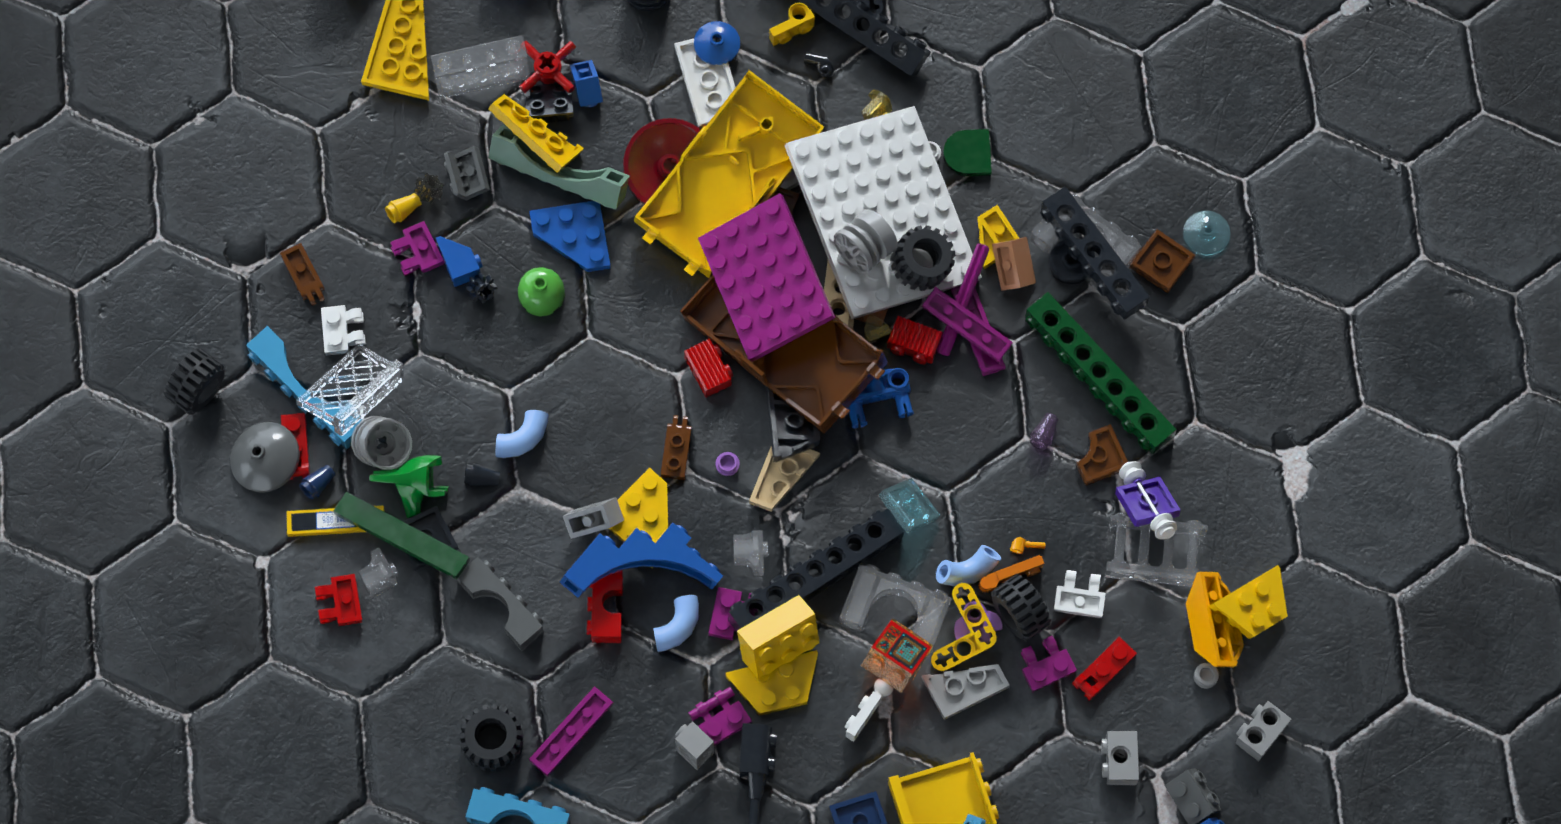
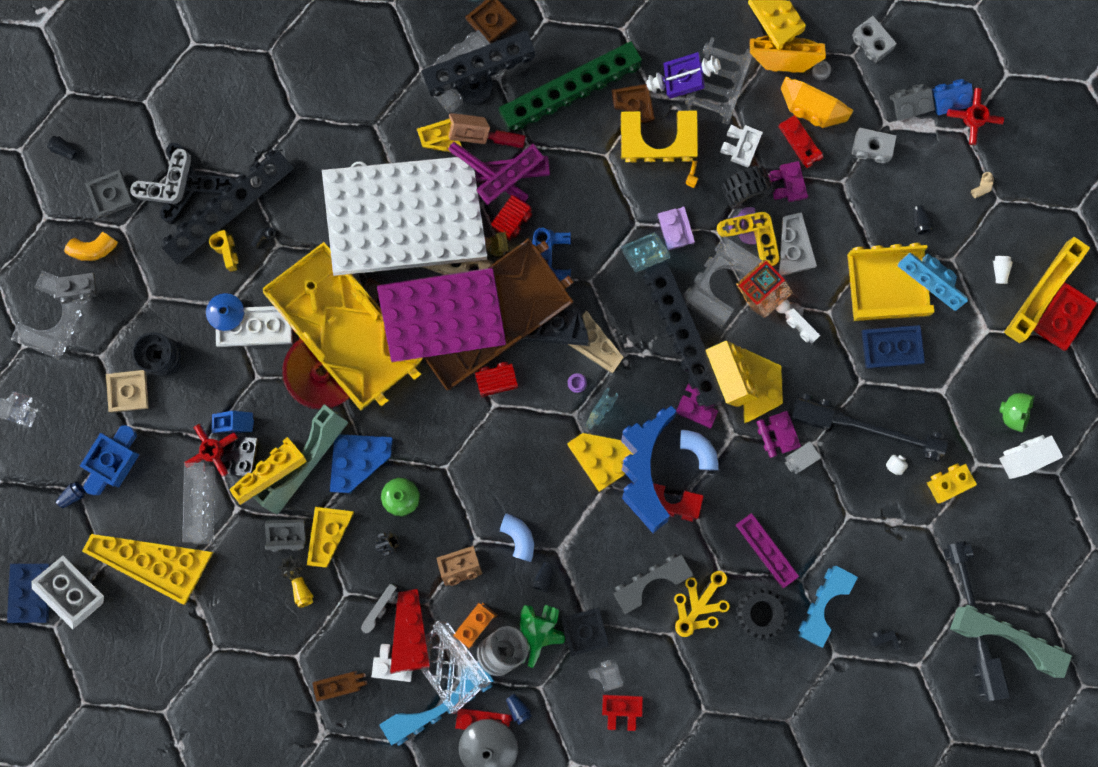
camera: 70 degrees left, 10 degrees up
(319, 523) = (553, 701): tile -> none
(375, 337) = (409, 639): none -> red wing
(401, 535) = (581, 651): dark green tile -> none
(402, 296) = (379, 609): none -> light grey hinge
(407, 393) = (474, 624): none -> orange door
(422, 246) = (338, 584): magenta plate -> none
(458, 260) = (359, 556): blue slope -> none
(472, 376) = (459, 566): none -> medium nougat bracket
(477, 219) = (326, 534): none -> yellow wing
(484, 666) = (699, 606): none -> yellow plant
(593, 518) = (603, 495): light grey brick -> none
(676, 449) = (555, 419): reddish brown hinge -> none
(700, 491) = (600, 409): none -> clear light blue plate
(750, 551) = (653, 380): clear brick -> none
(865, 241) = (433, 229): light grey wheel -> none
(878, 106) = (313, 200): clear yellow tile -> none
(935, 246) = (455, 178): black tyre -> none
(952, 539) = (676, 228): none -> lavender plate
(969, 152) = (366, 141): dark green tile -> none
(970, 570) = (704, 220): light blue cylinder -> none
(1014, 315) = (507, 139): none -> dark red cylinder
(1029, 567) = (714, 191): orange hinge -> none
(1042, 464) = (635, 148): none -> yellow arch
(1043, 433) = (607, 139): clear purple cone -> none
(1152, 673) = (814, 104): none -> light orange wedge

